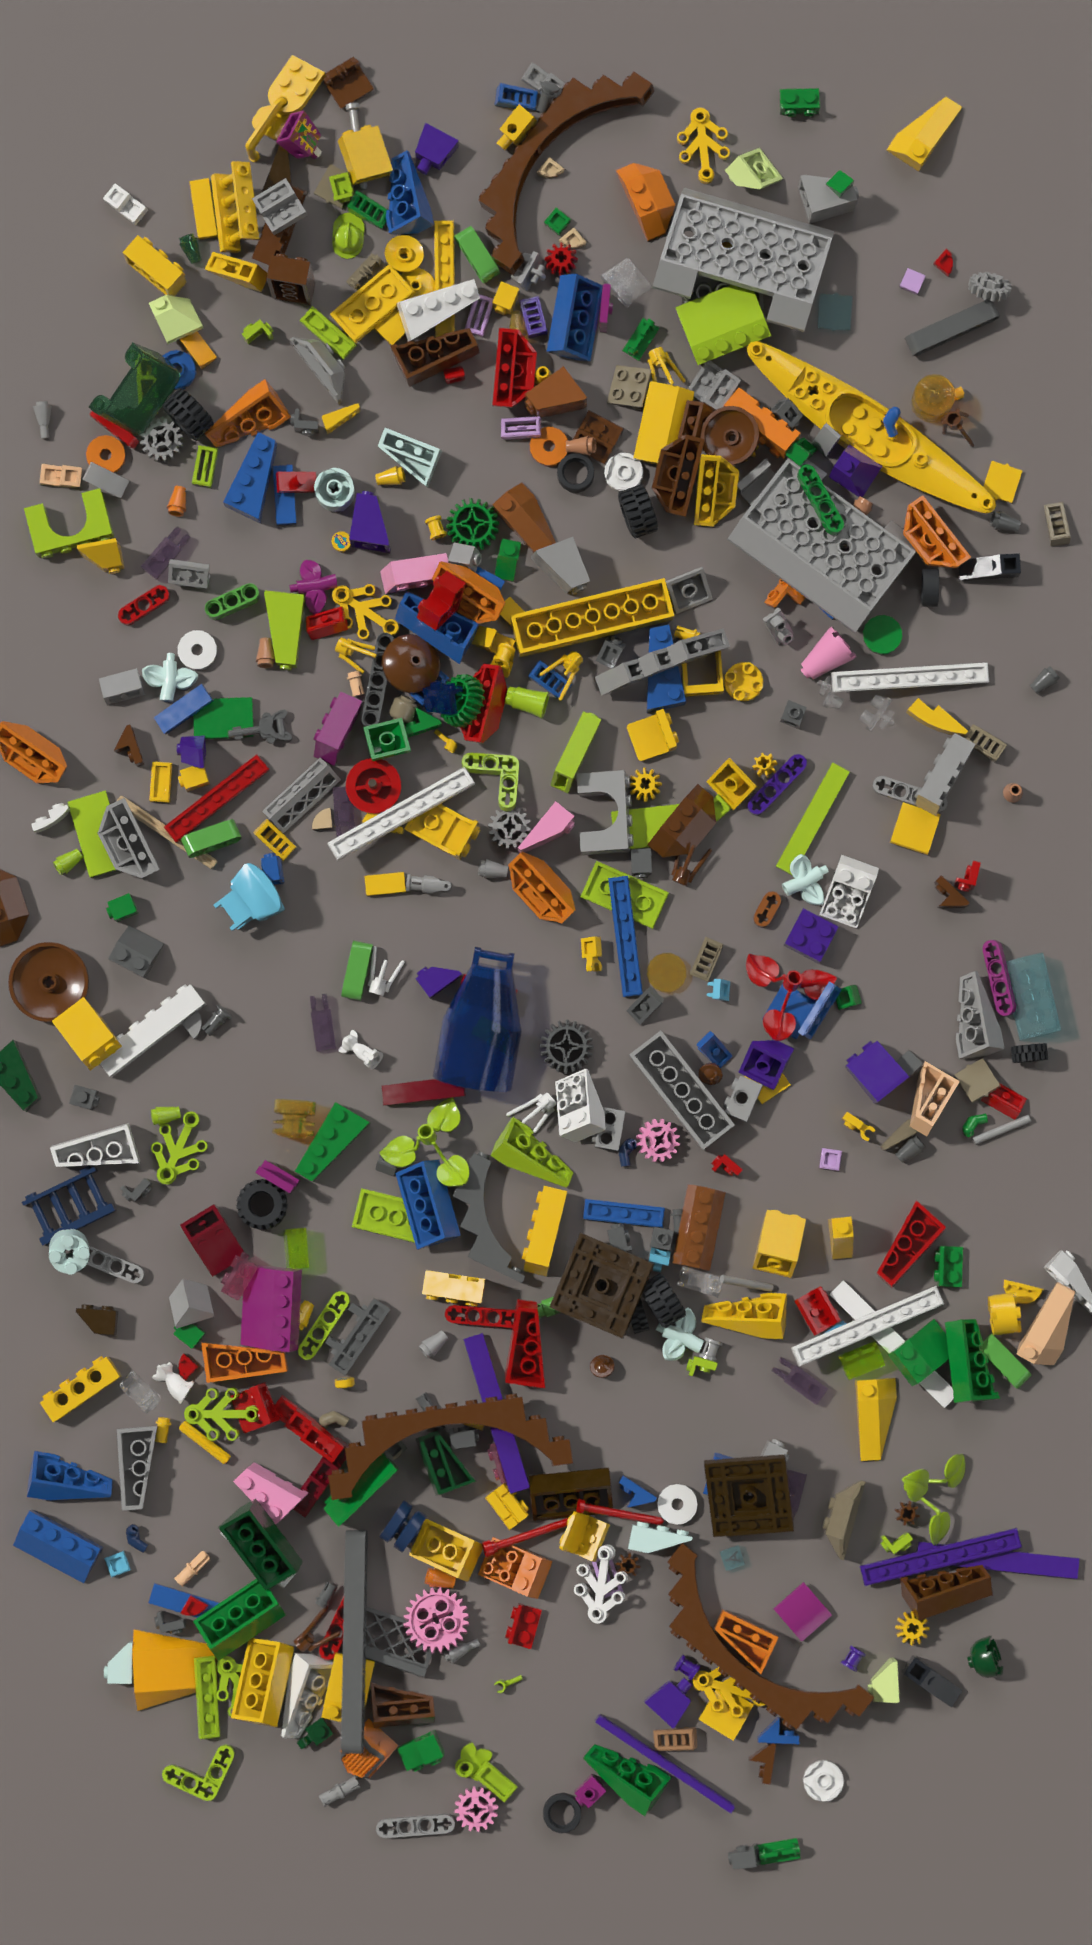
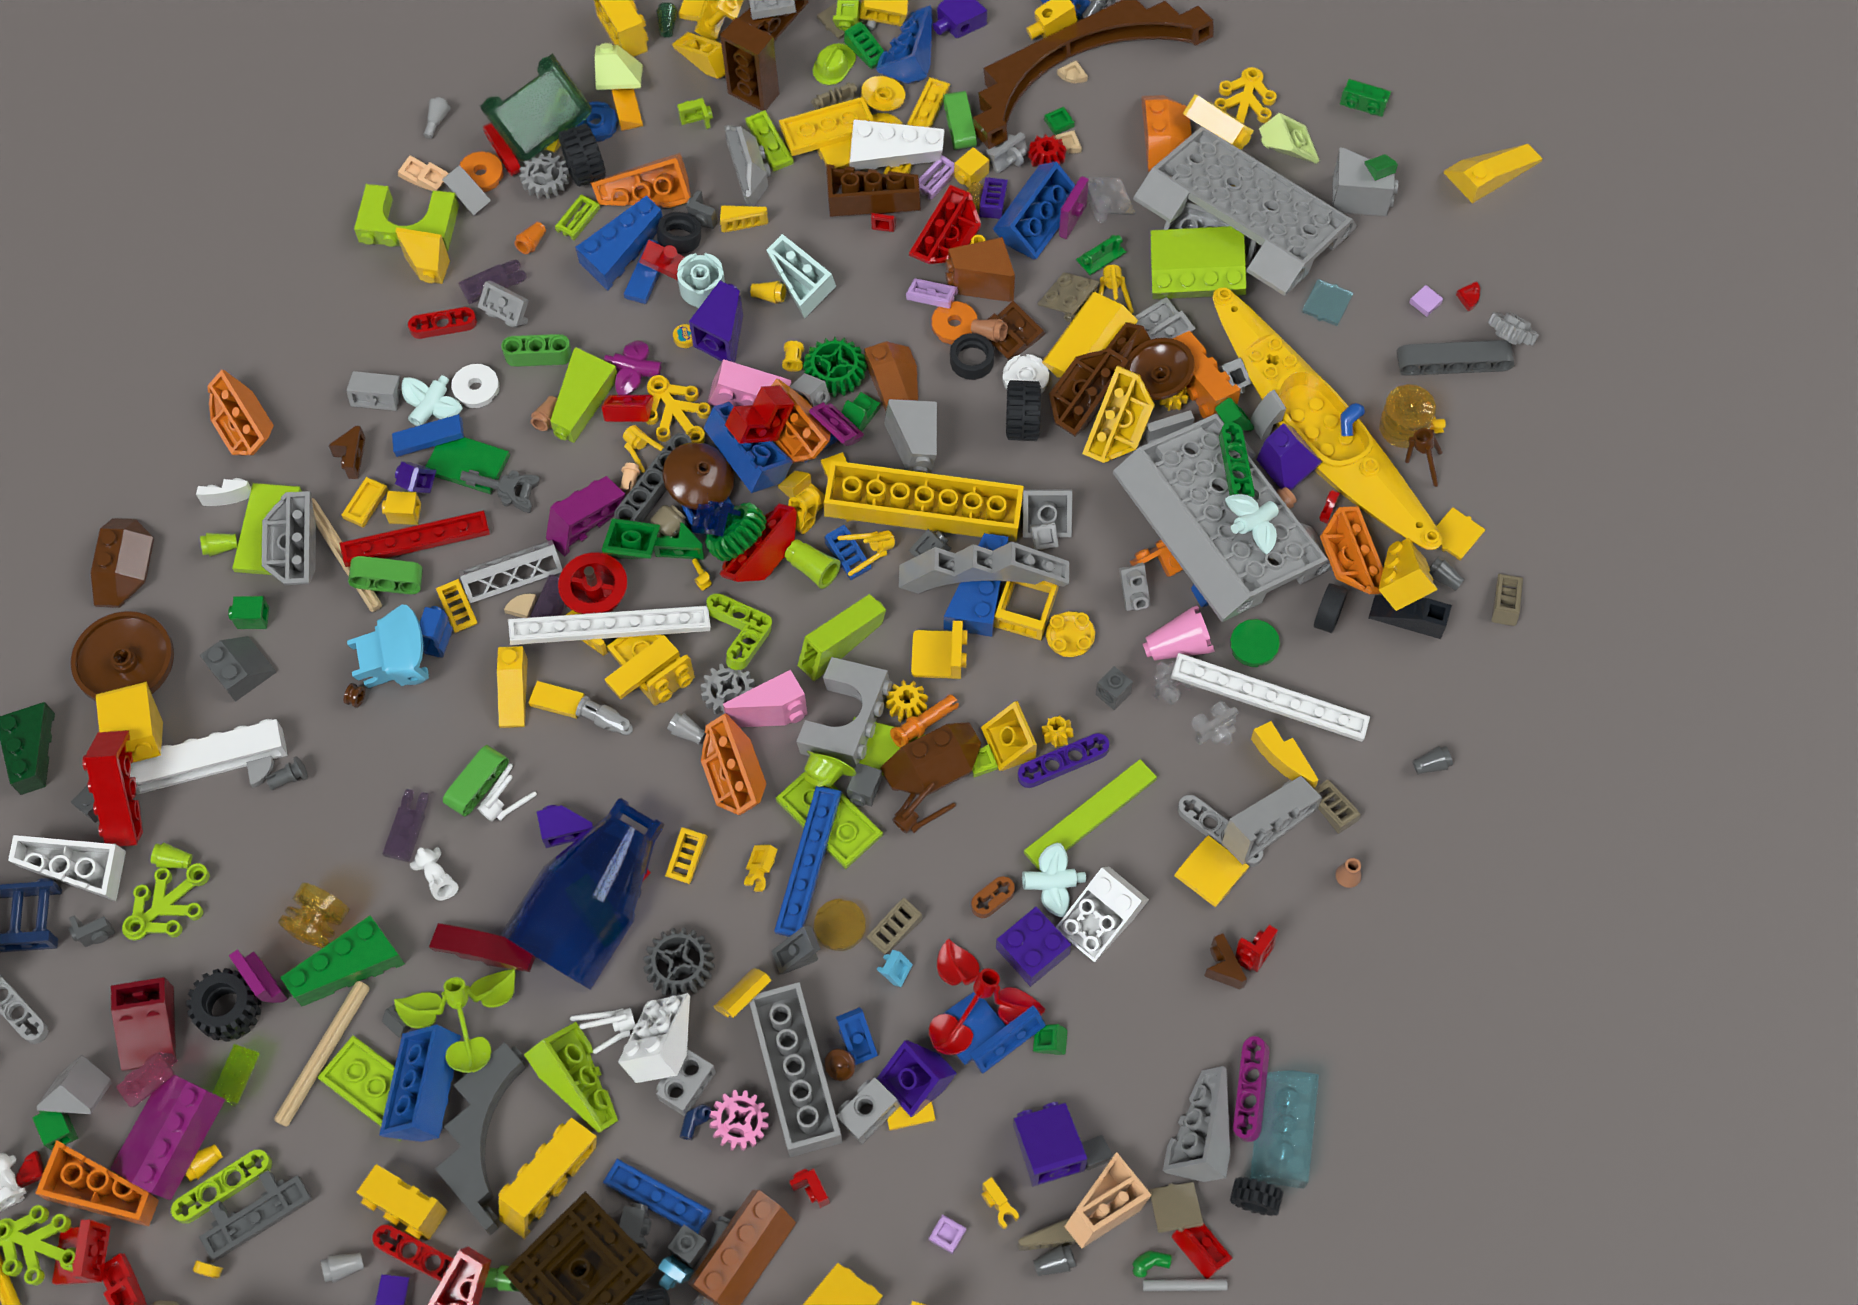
camera: 20 degrees right, 20 degrees down
(105, 1085) = (113, 788): none -> red wedge
(234, 940) = (354, 695): none -> reddish brown bush
(296, 465) = (681, 221): none -> black tyre
(346, 1208) = (321, 1054): none -> tan axle
(348, 889) = (512, 686): none -> yellow slope
(440, 836) = (642, 667): none -> yellow tile
(500, 580) = (837, 423): none -> magenta slope
(531, 948) = (686, 833): none -> yellow slope
(608, 867) = (825, 770): none -> lime piece
(622, 1052) = (742, 993): none -> yellow slope
(661, 803) = (916, 726): none -> orange pin
(692, 180) = (1218, 121): none -> slope
(693, 608) = (1044, 536): none -> light grey tile
(851, 545) = (1254, 519): none -> light aqua plant
(898, 498) = (1329, 506): none -> red tile
(977, 541) = (1405, 575): none -> yellow wedge

